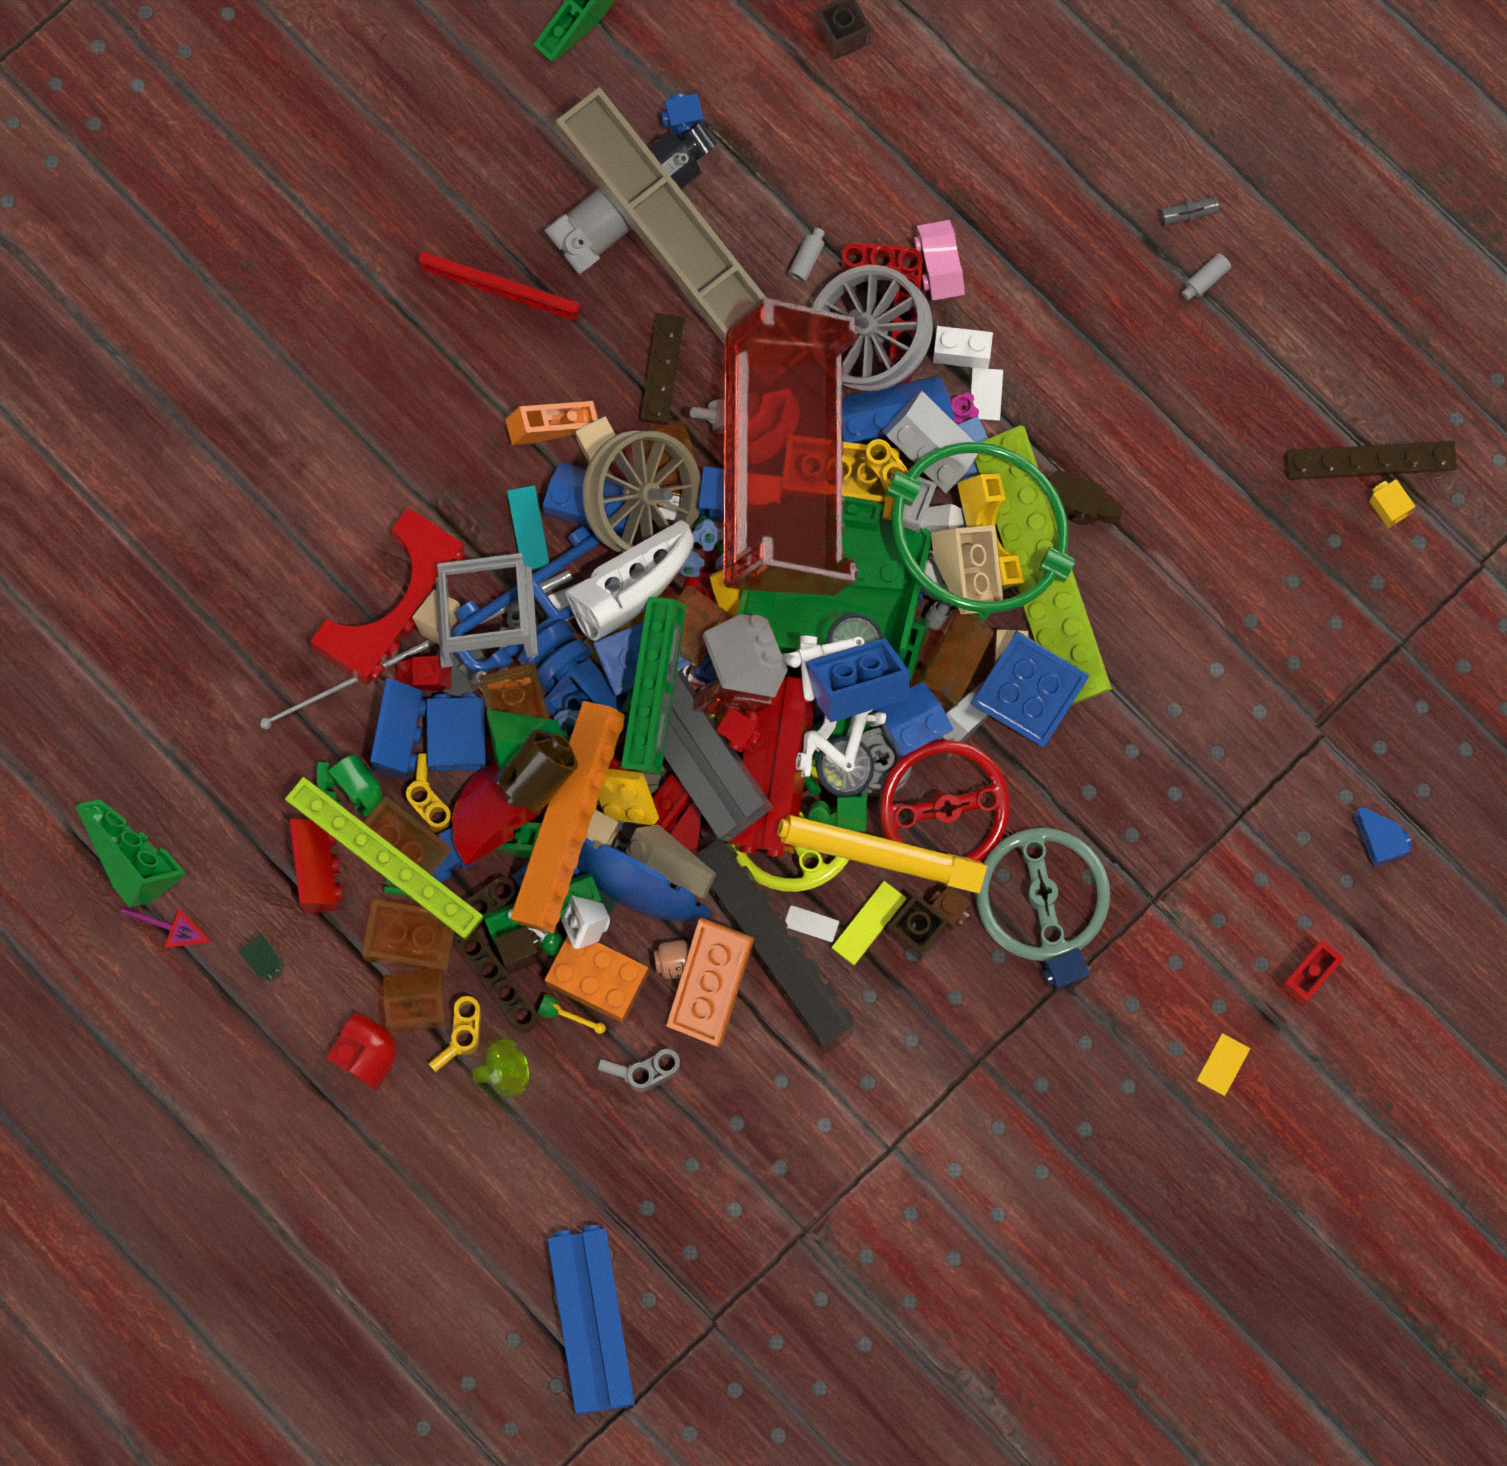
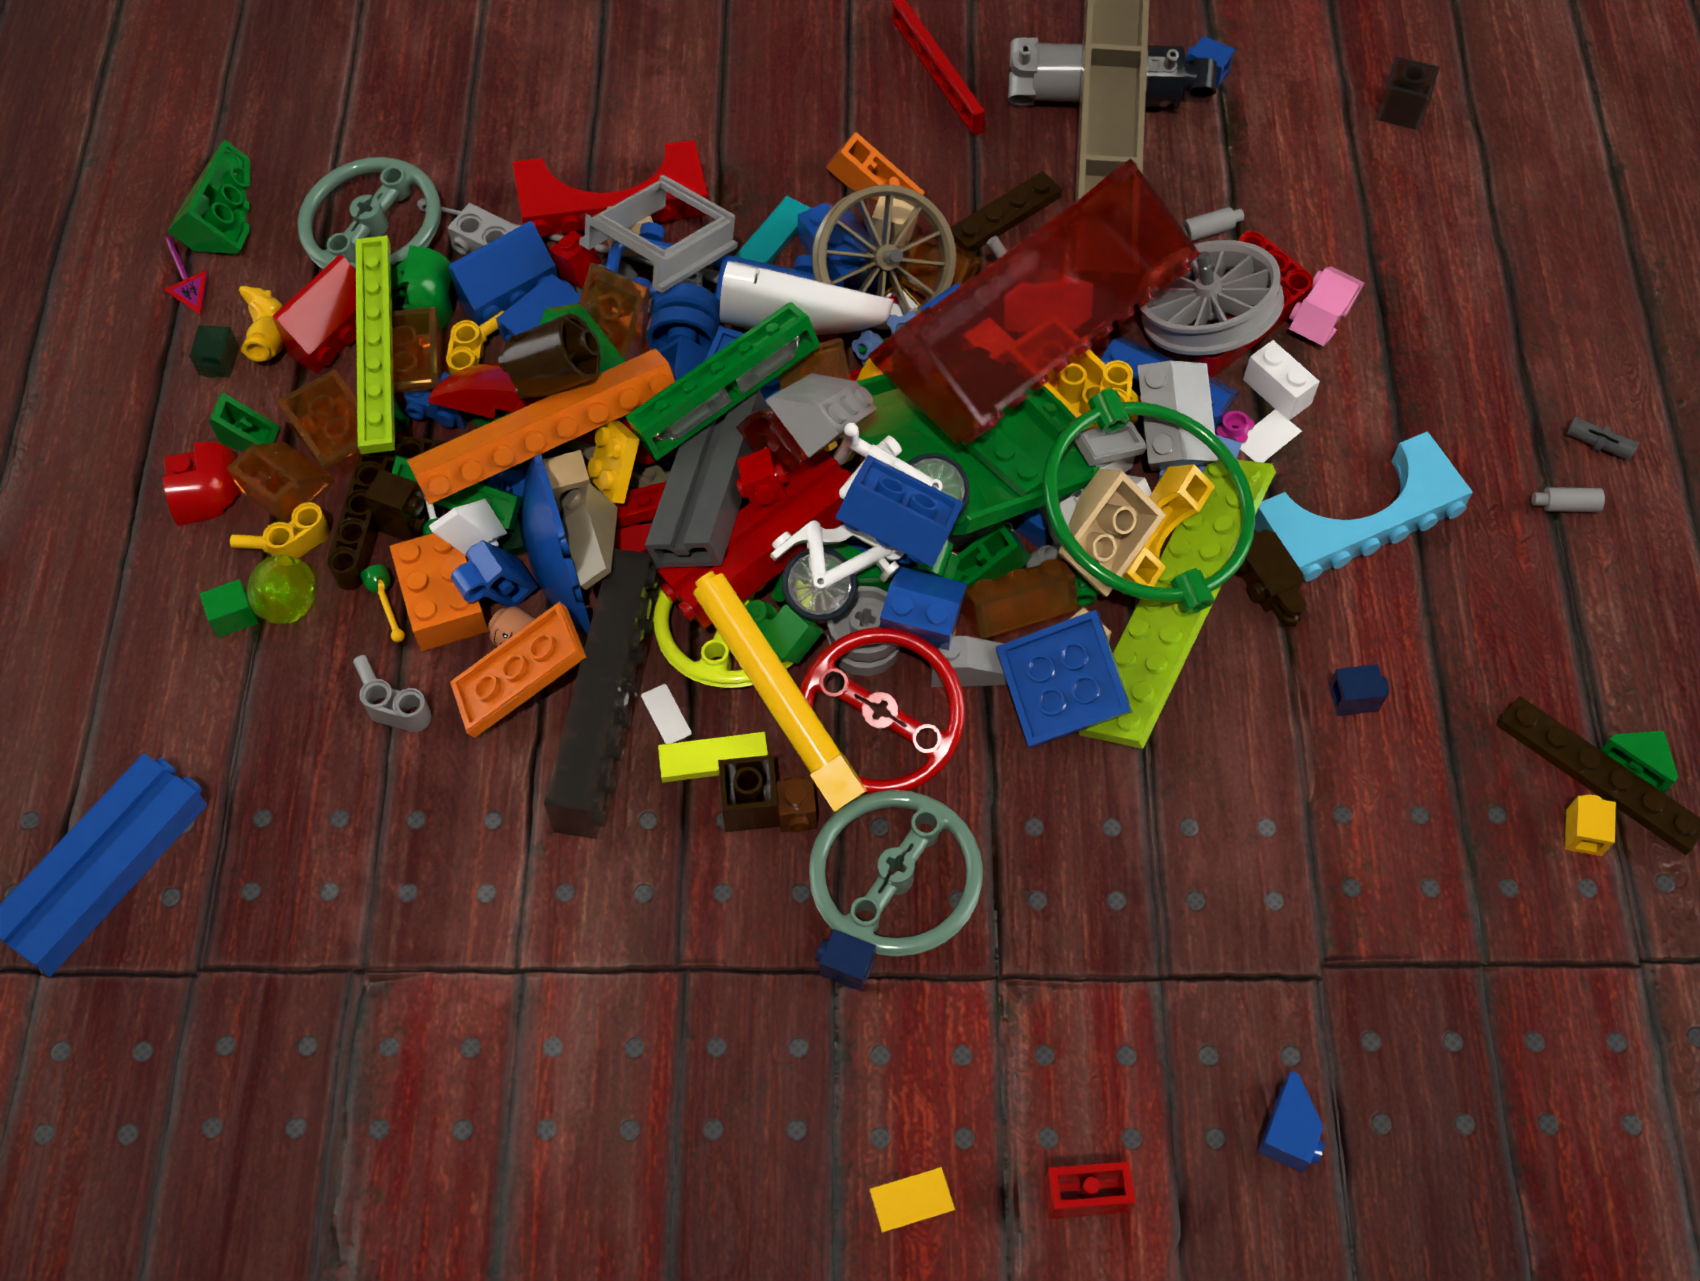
camera: 45 degrees right, 15 degrees down
(226, 715) = (368, 210): none -> sand green piece
(282, 913) = (262, 336): none -> yellow animal
(342, 702) = (476, 228): none -> light grey brick
(348, 989) = (240, 425): none -> green slope
(483, 1108) = (228, 608): none -> green brick
(629, 937) = (493, 575): none -> blue hinge
(1119, 350) = (1428, 494): none -> medium azure arch
(1195, 532) = (1358, 690): none -> dark blue brick
(1388, 429) = (1645, 755): none -> green slope

